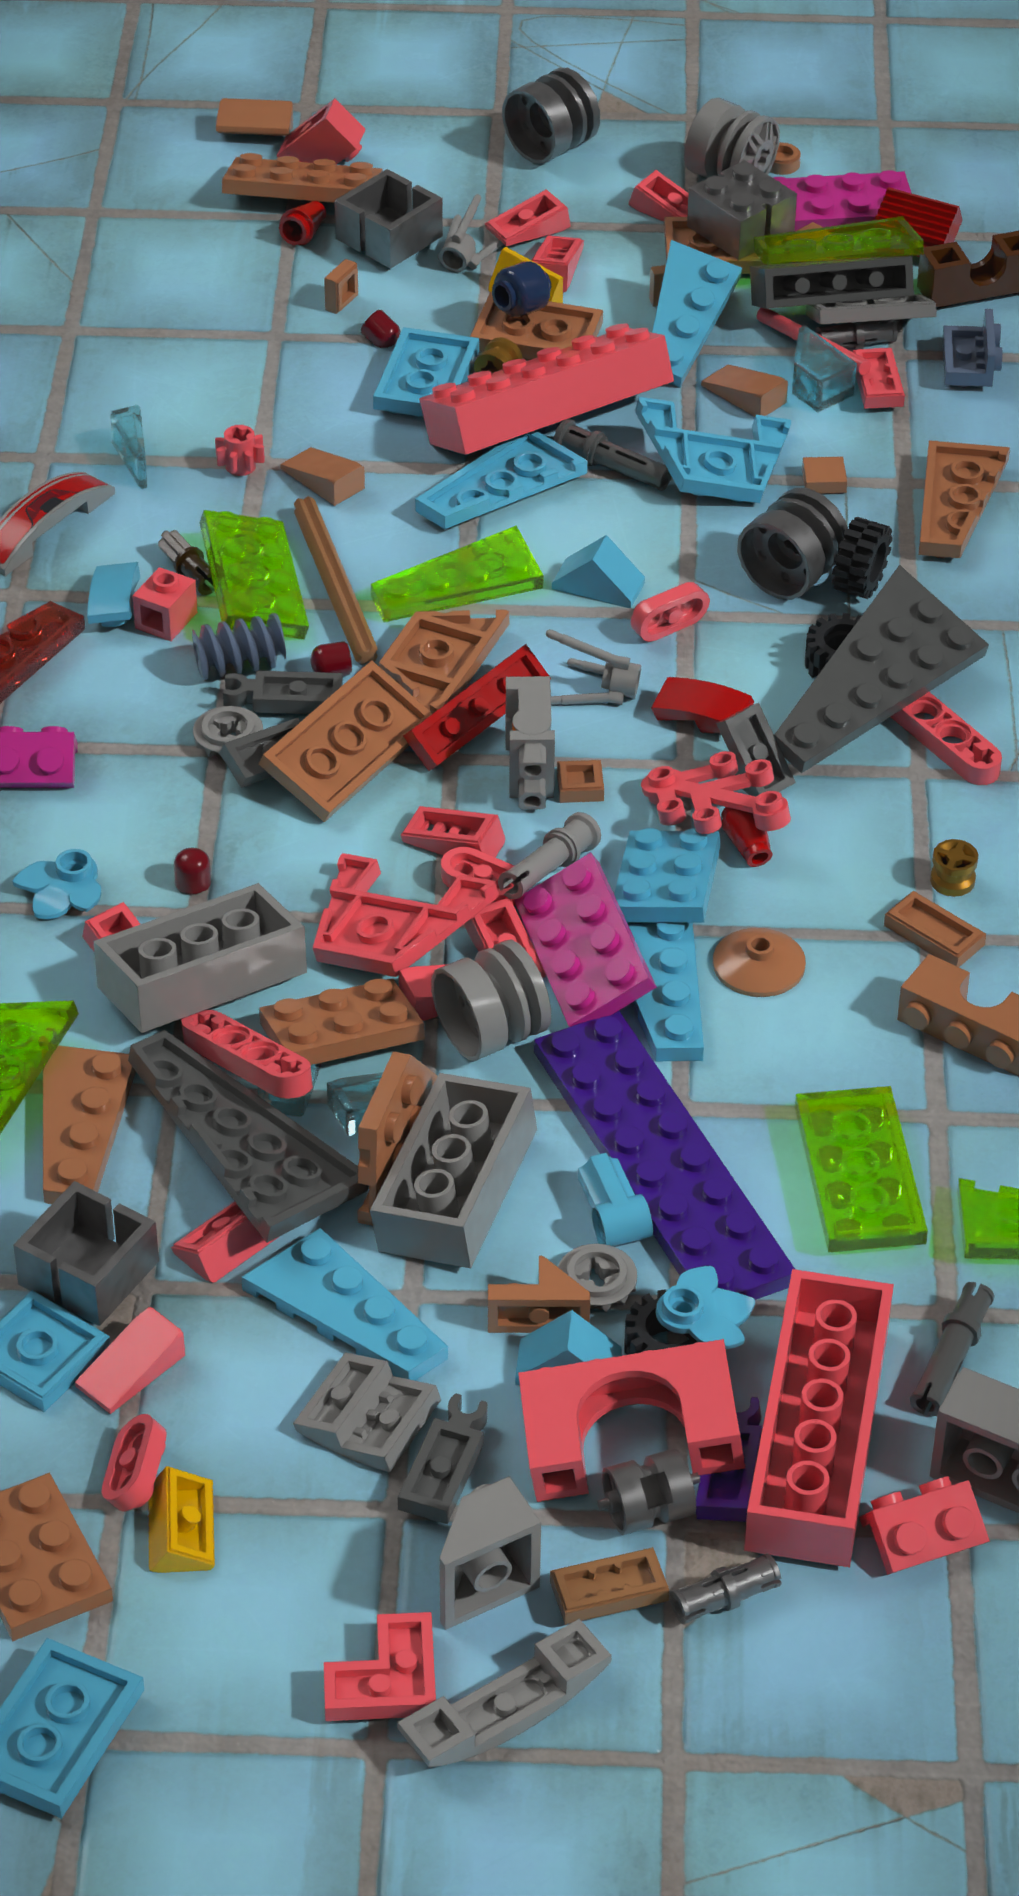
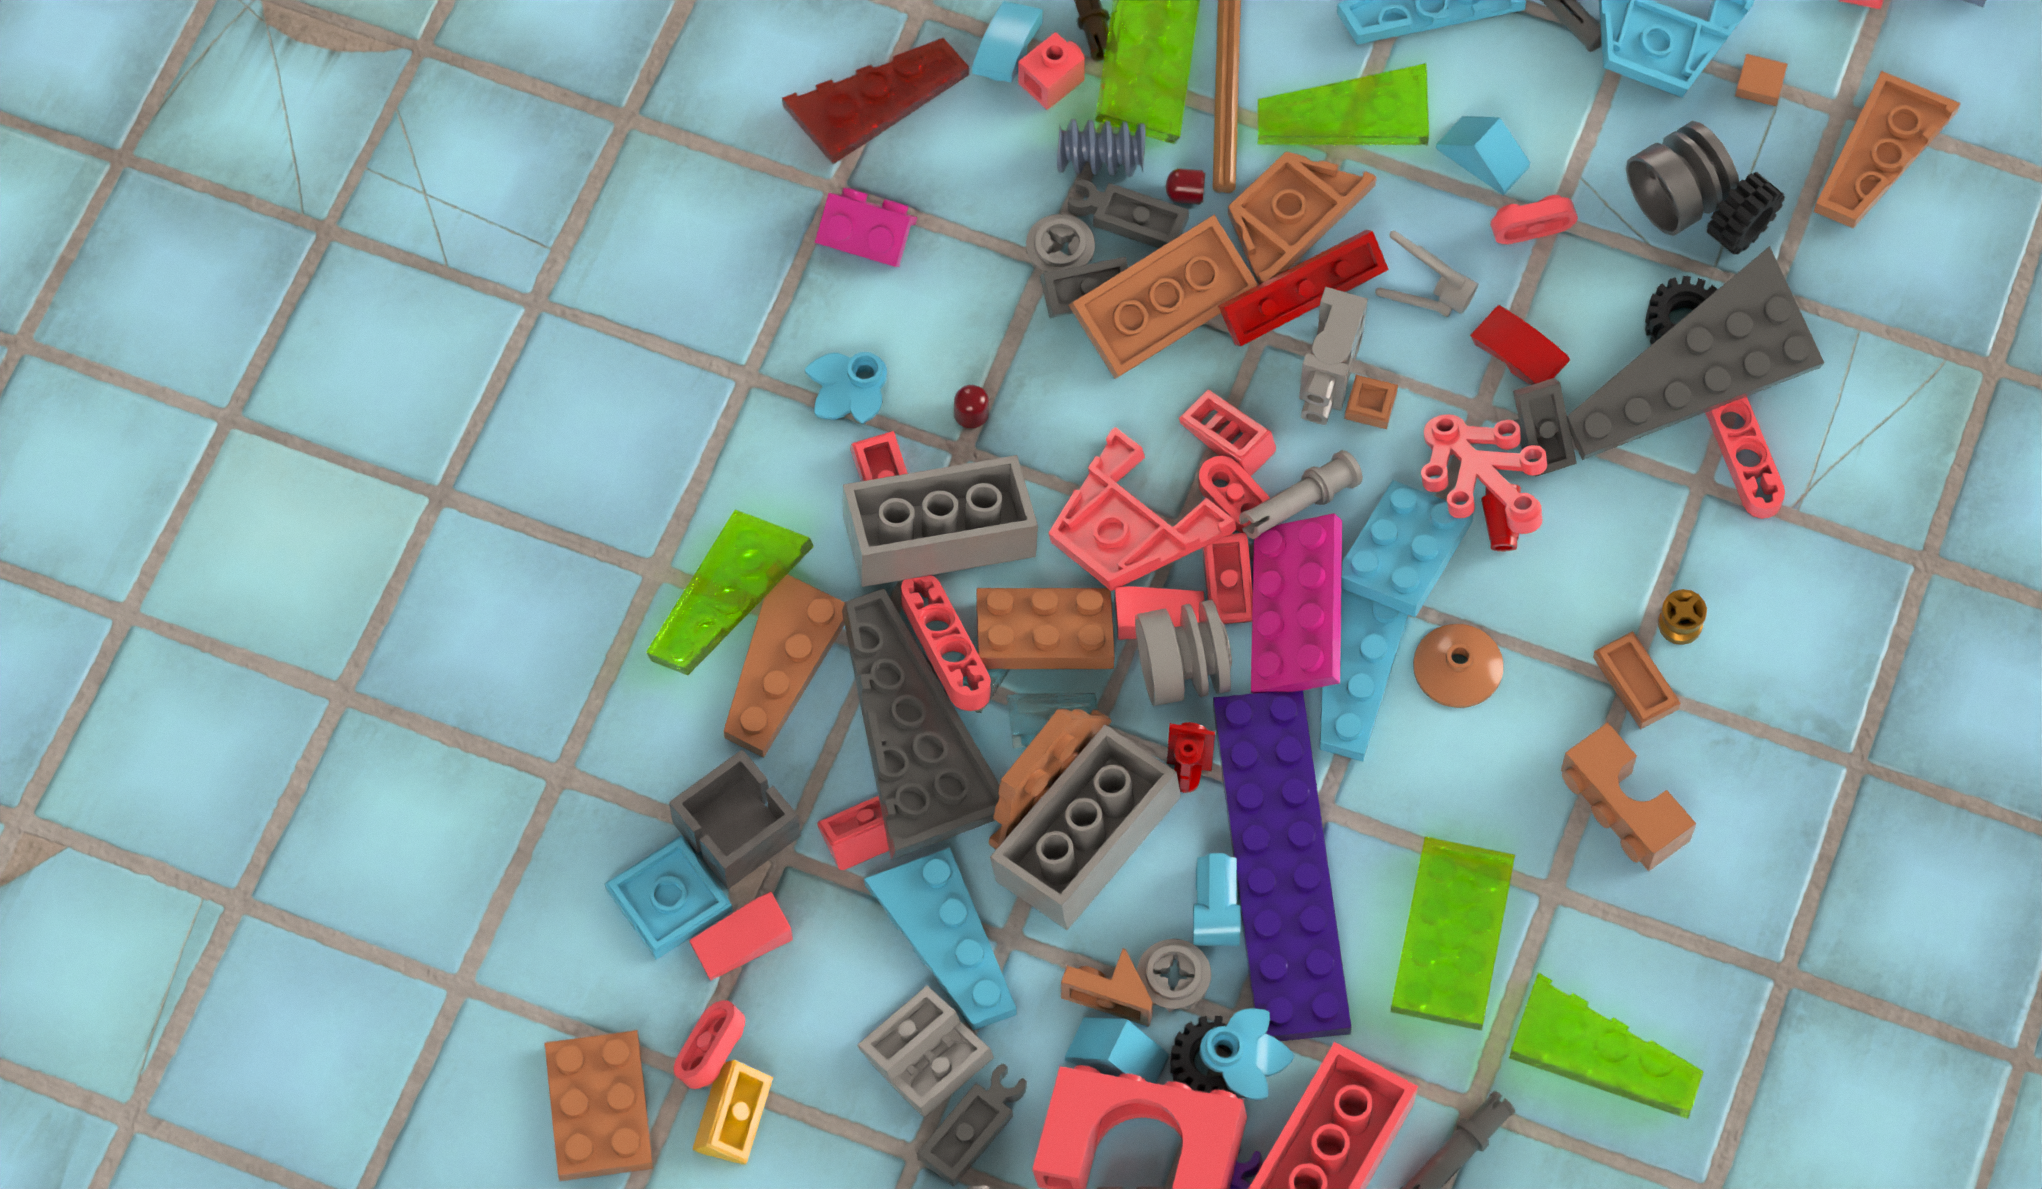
camera: 20 degrees right, 20 degrees up
(535, 1066) = (1191, 752): none -> red hinge

